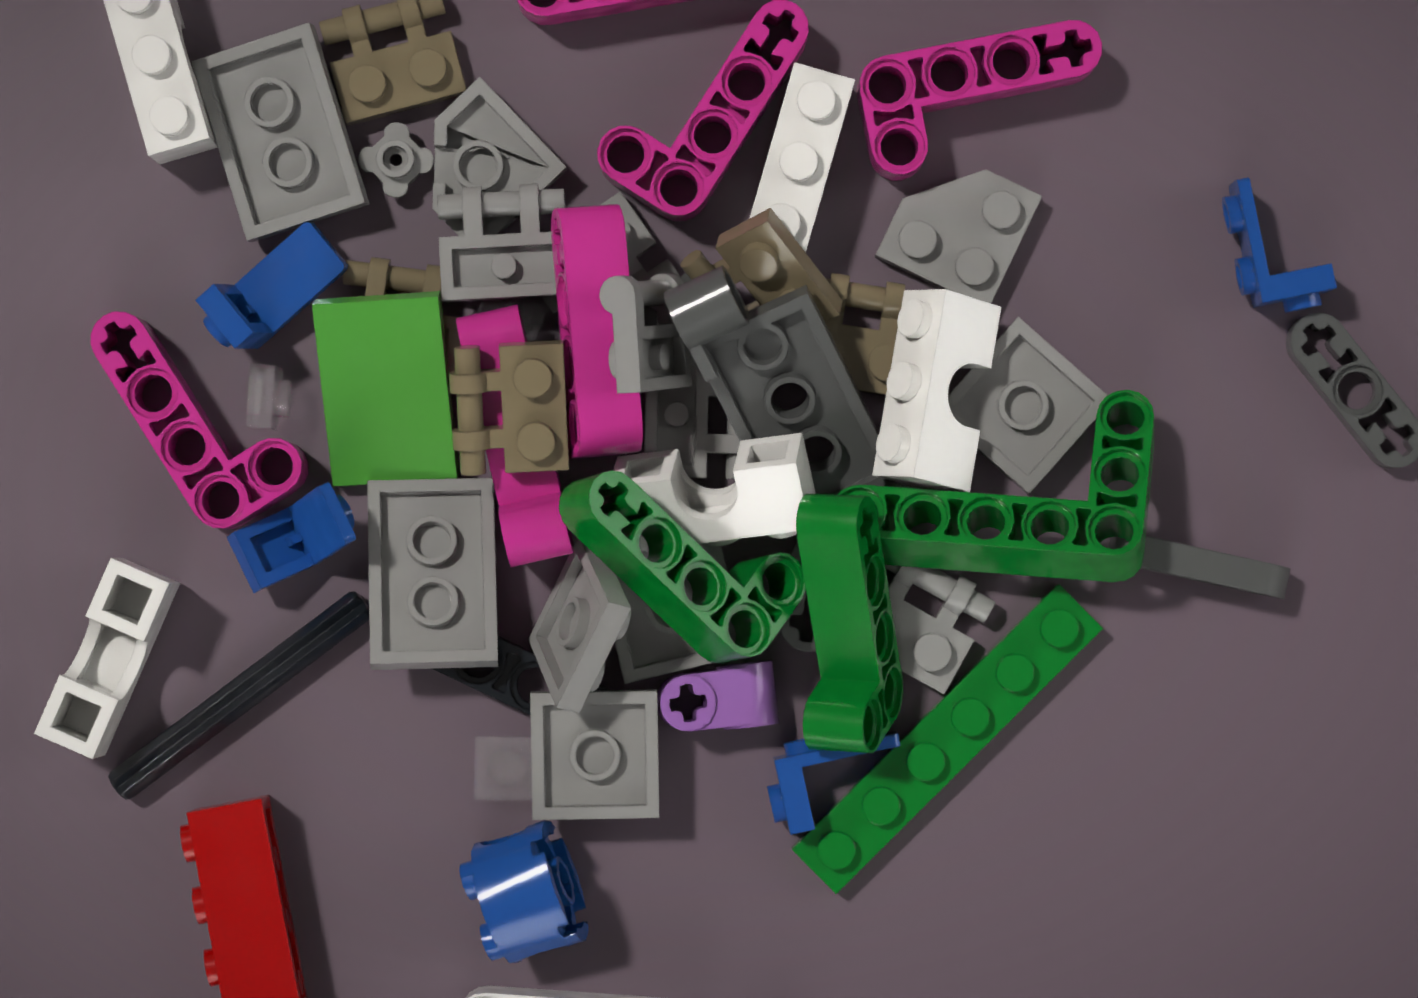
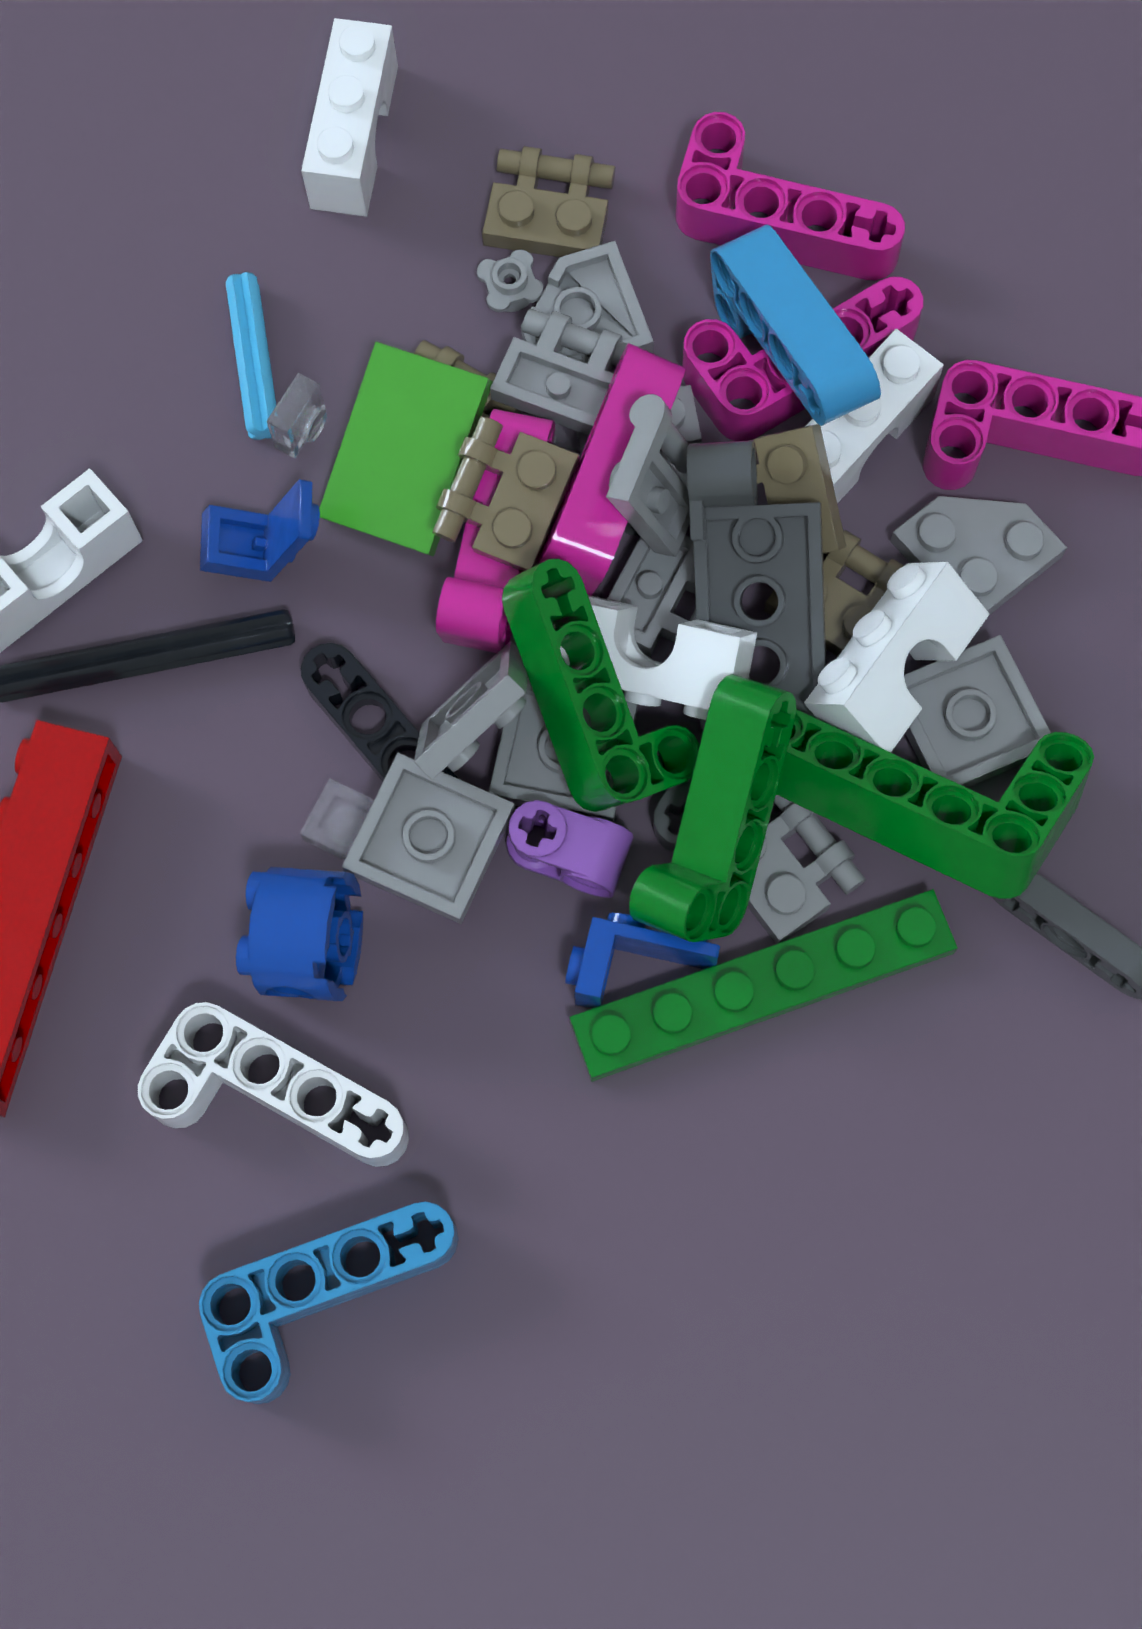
camera: 25 degrees right, 15 degrees down
(186, 349) = (251, 353): none -> medium azure axle
(187, 414) = (218, 401): dark pink beam -> none
(272, 290) = (349, 336): blue bracket -> none
(280, 132) = (423, 216): light grey plate -> none
(432, 574) = (361, 620): light grey plate -> none
(700, 115) = (769, 294): none -> dark azure beam

